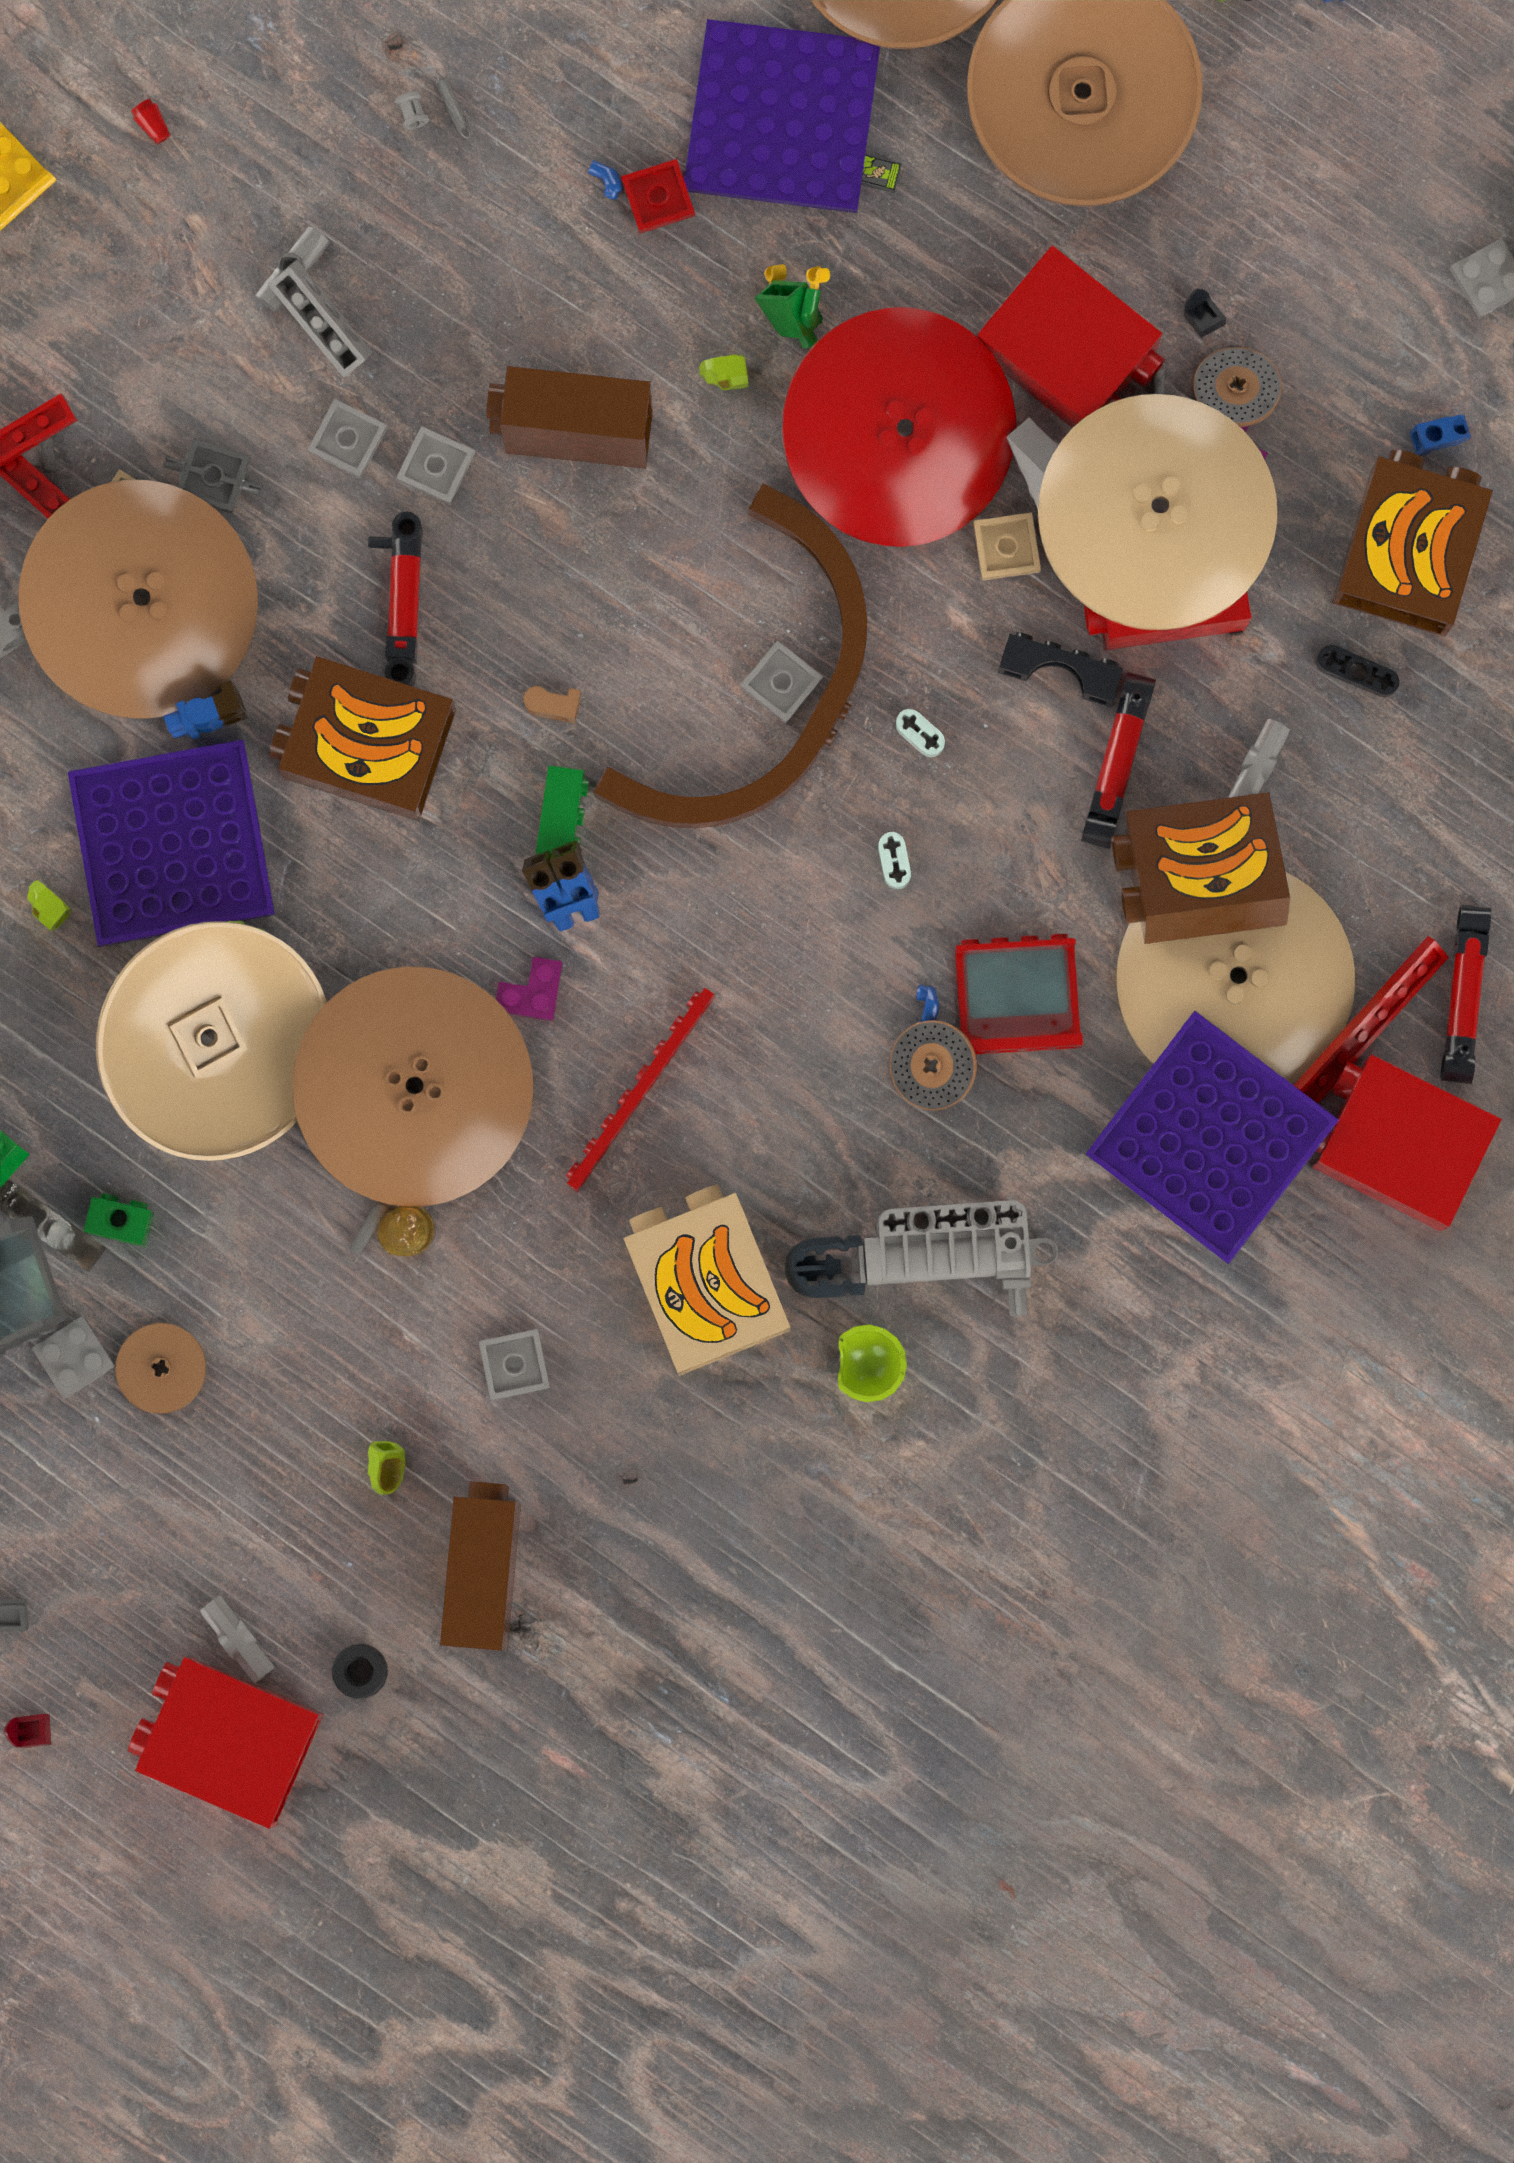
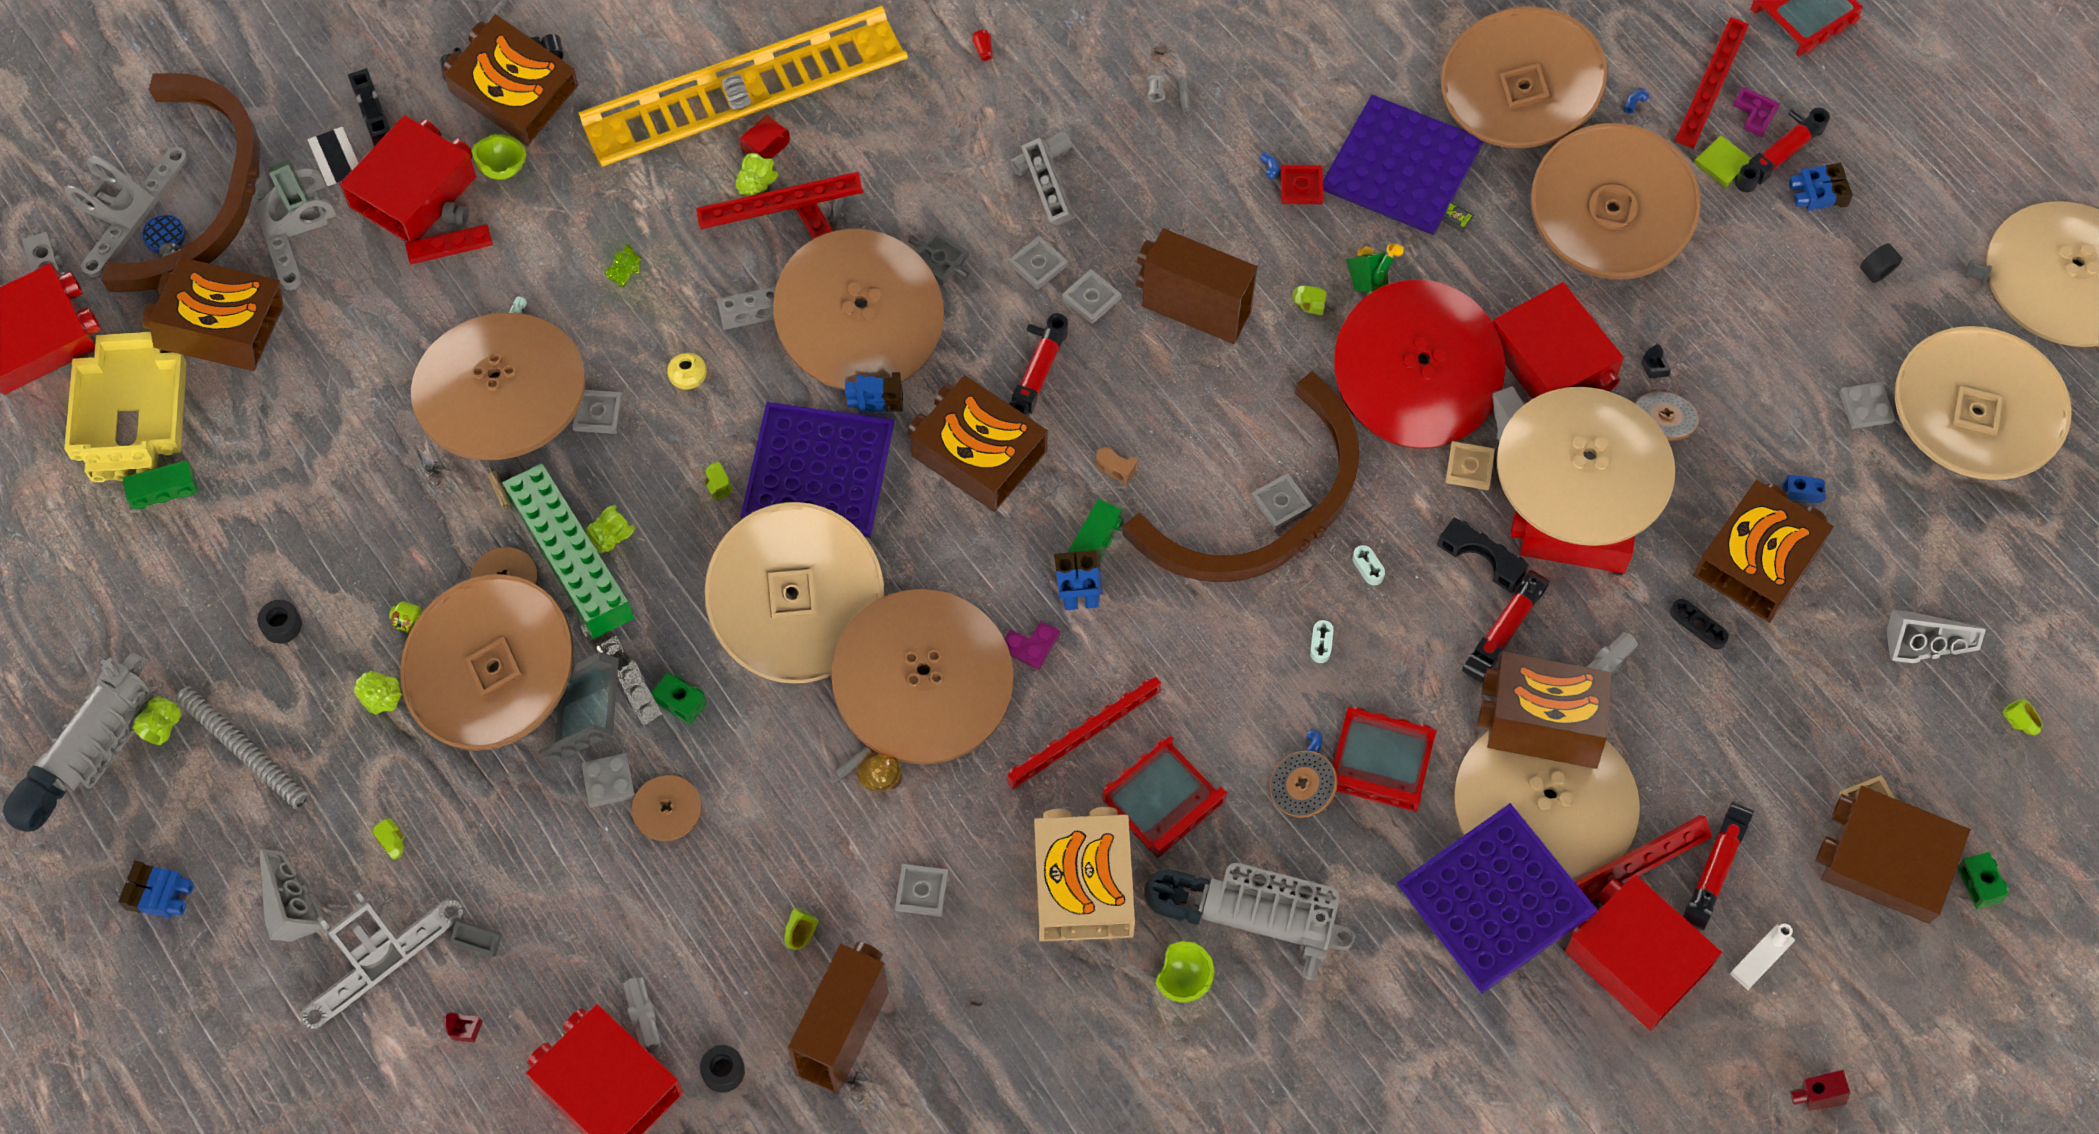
camera: 20 degrees right, 20 degrees down
(765, 1140) = (1162, 797): none -> clear light blue panel
(1457, 60) = (1881, 262): none -> black tyre

